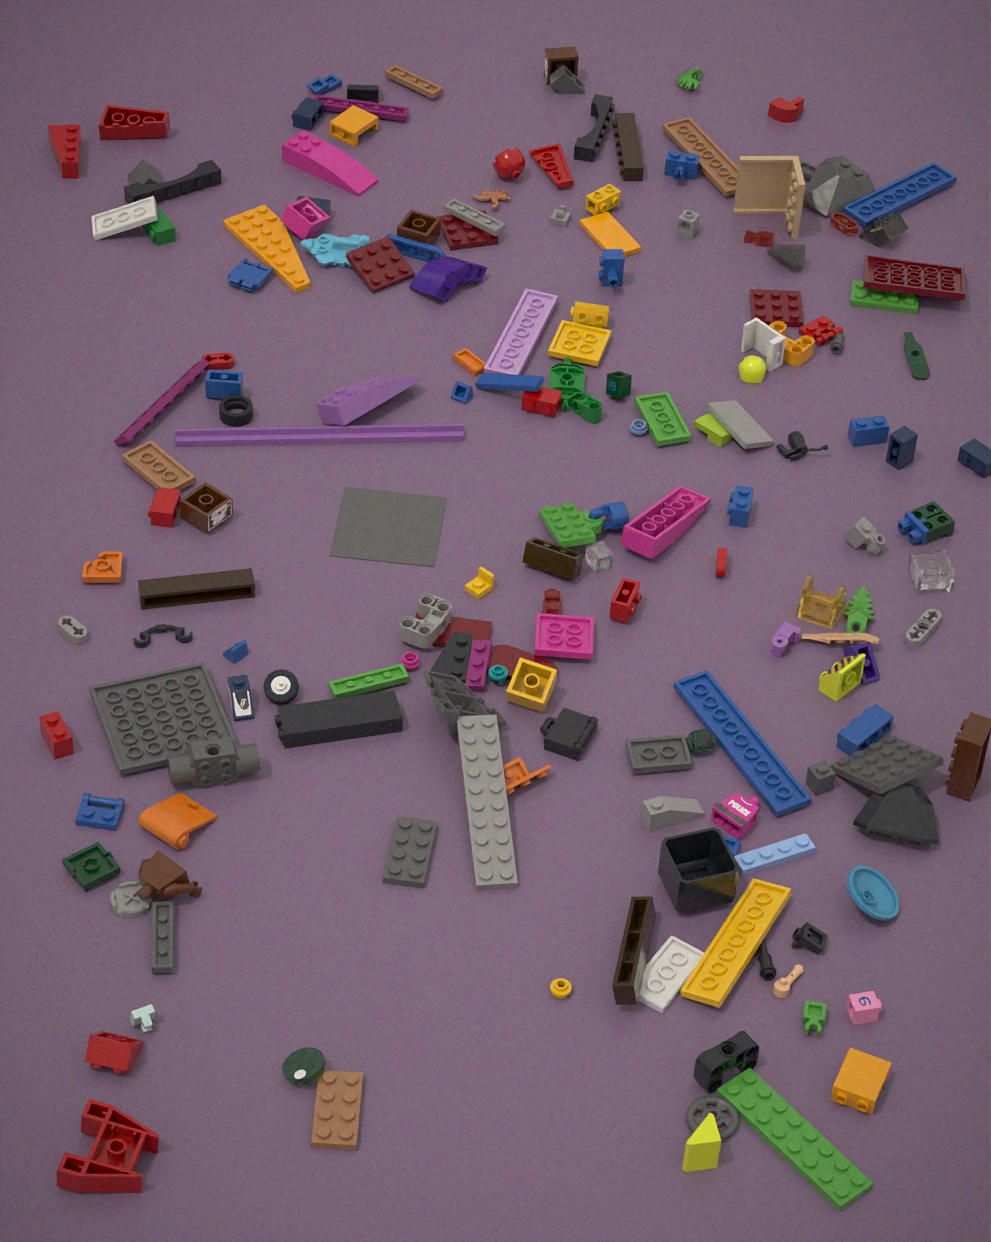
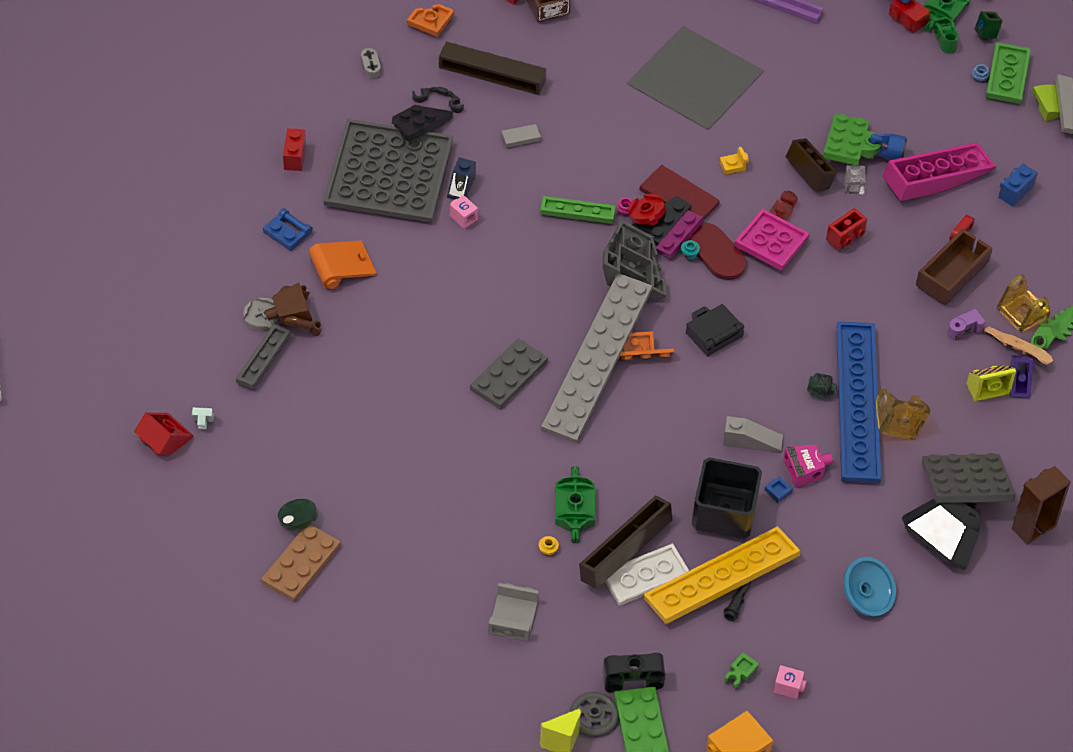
camera: 30 degrees right, 10 degrees up
(91, 866) = (248, 272): dark green plate -> none
(112, 1156) = (103, 516): red wedge -> none
(161, 661) = (419, 120): none -> black wing
(213, 762) = (398, 226): dark grey brick -> none
(236, 652) = (488, 138): blue slope -> none
(262, 725) = (463, 211): none -> bright pink brick
(266, 638) = (521, 135): none -> light grey tile
(281, 686) = (501, 184): black wheel -> none
(339, 719) = (529, 232): black brick -> none
(427, 658) = (640, 211): none -> red plate
(436, 616) = (673, 176): light grey beam -> none
(531, 685) = (708, 272): yellow brick -> none
(562, 951) = (570, 515): none -> green plate
(573, 1061) = (513, 612): none -> light grey panel
(658, 754) = (777, 380): dark grey plate -> none
(740, 595) = (953, 266): none -> reddish brown piece
(774, 854) = (814, 513): light blue plate -> none
(782, 986) = (734, 631): light nougat piece -> none
(790, 736) = (894, 410): none -> clear yellow hose
(810, 937) = (788, 600): black bracket -> none
(820, 778) = (902, 464): dark grey brick -> none
(865, 730) = (976, 438): blue brick -> none

